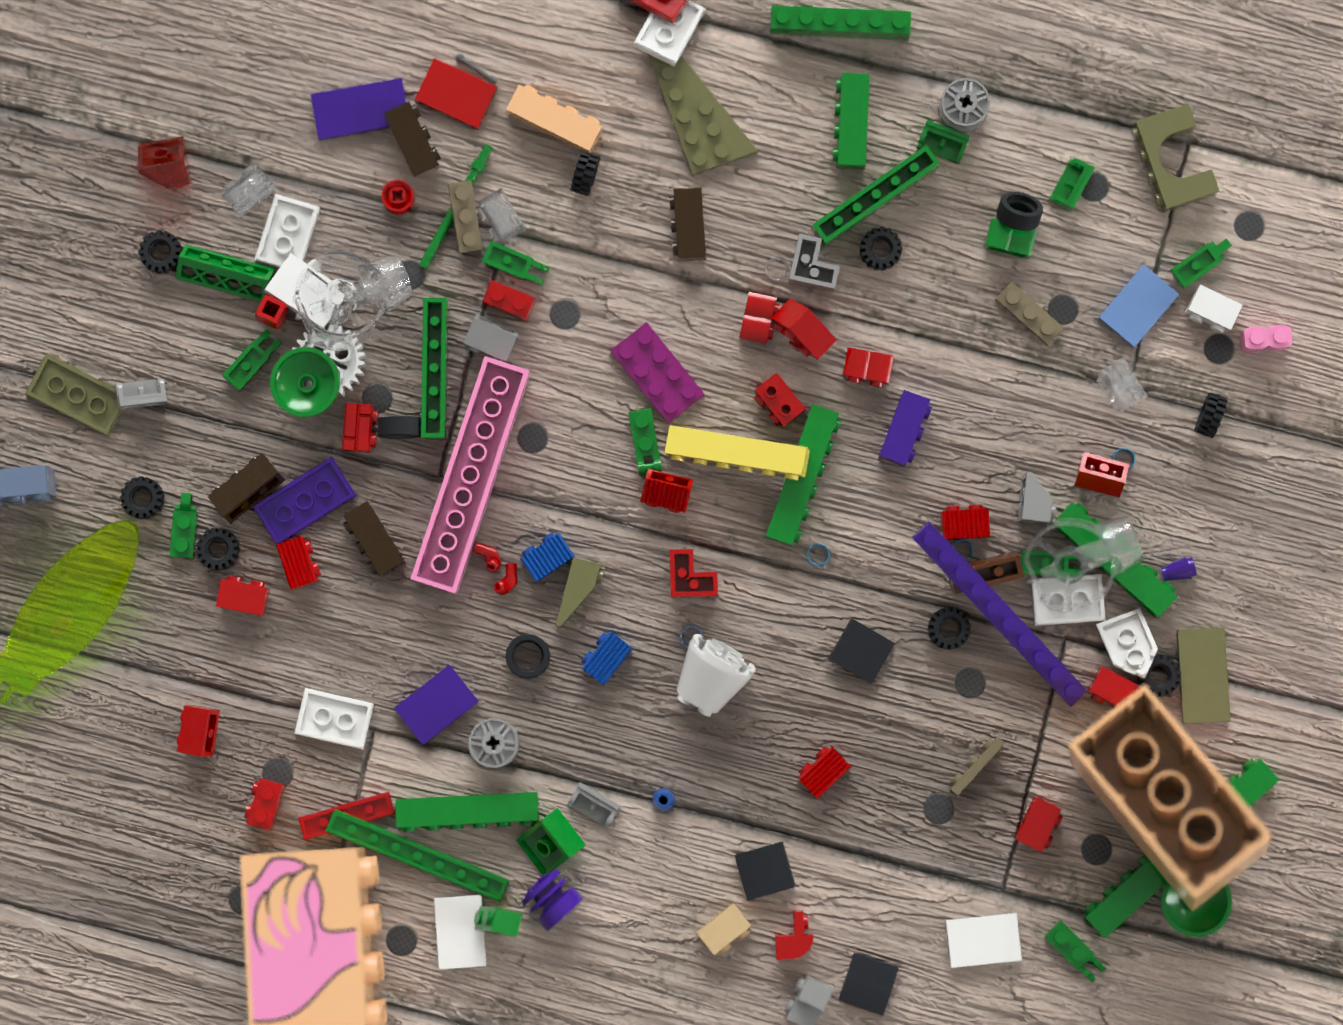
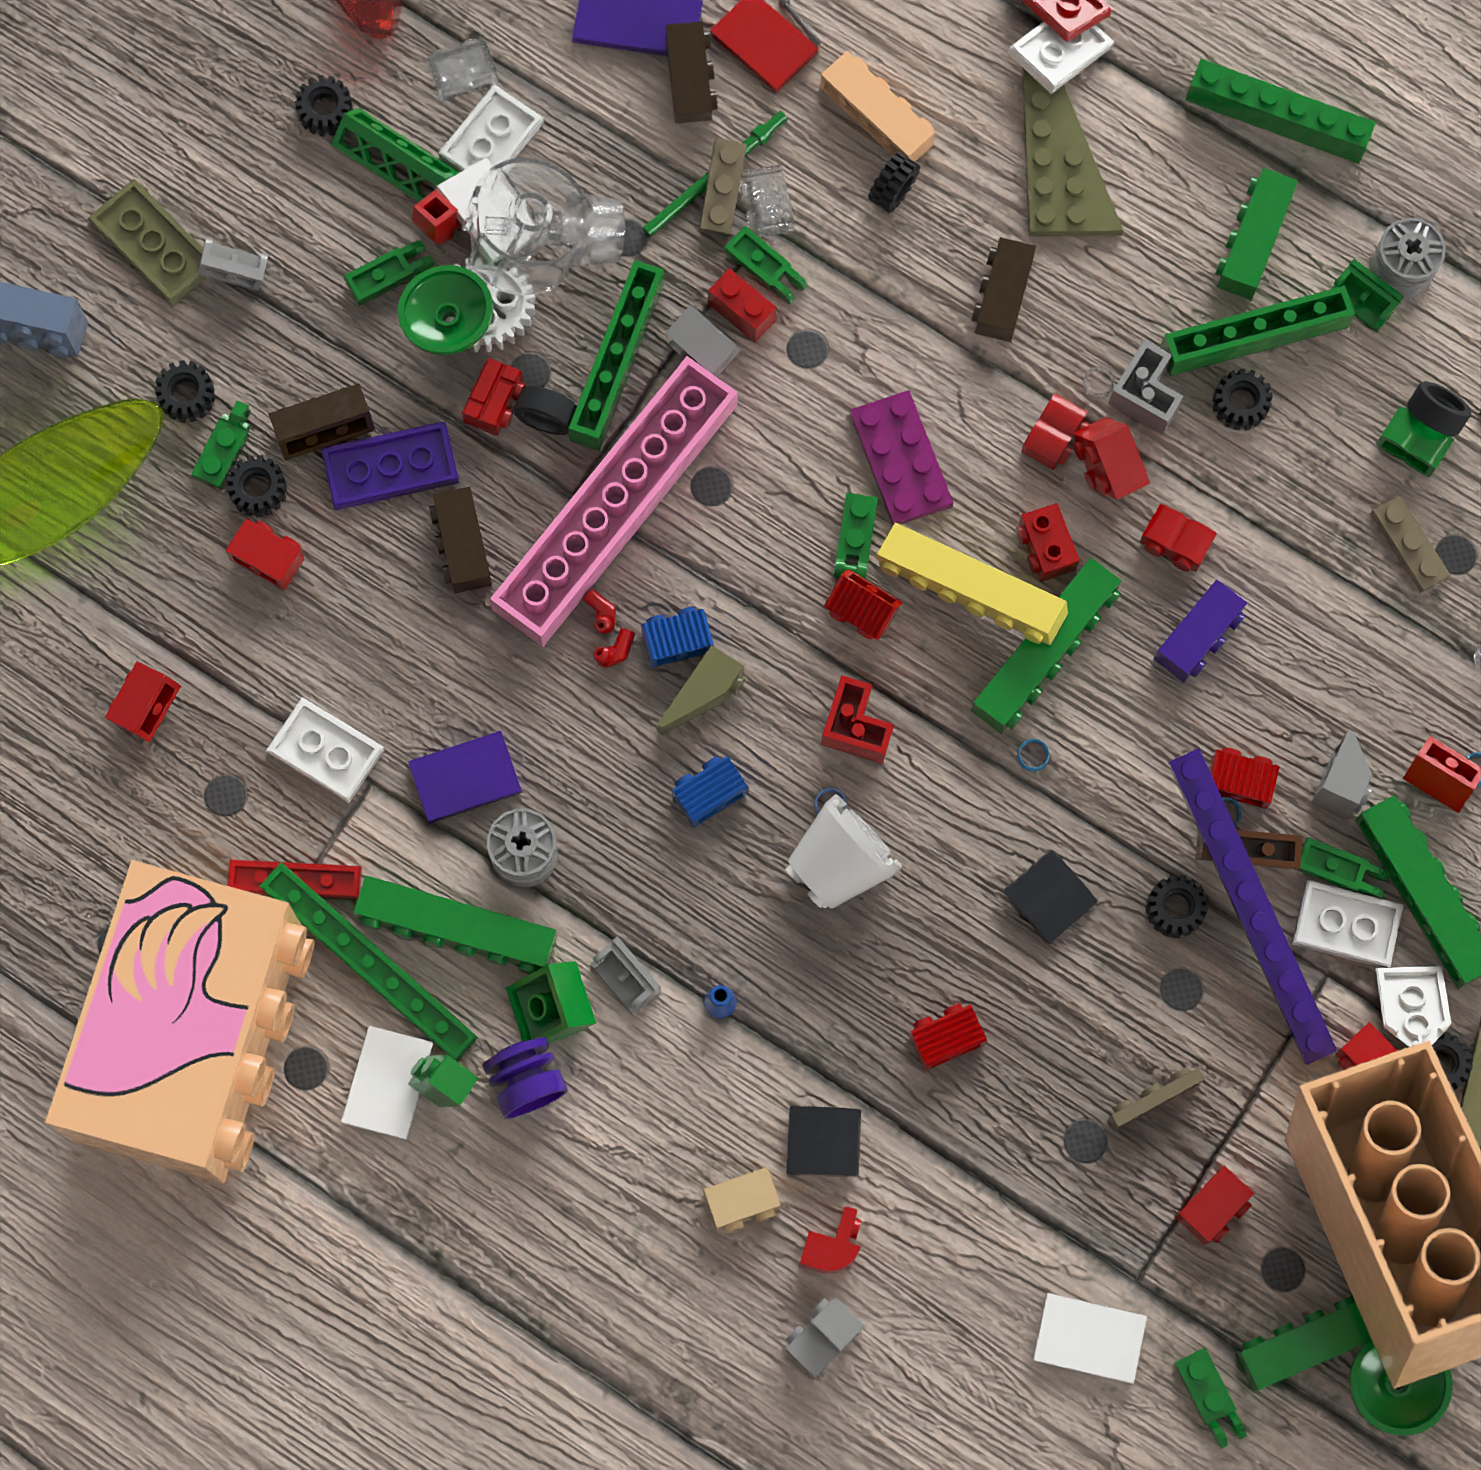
camera: 15 degrees right, 10 degrees down
(265, 803) = (194, 825): red brick -> none
(298, 562) = (353, 536): red brick -> none
(398, 197) = (646, 138): red wheel -> none
(528, 674) = (613, 730): black tyre -> none
(868, 984) = (912, 1343): black slope -> none
(1116, 544) = (1441, 862): clear animal -> none

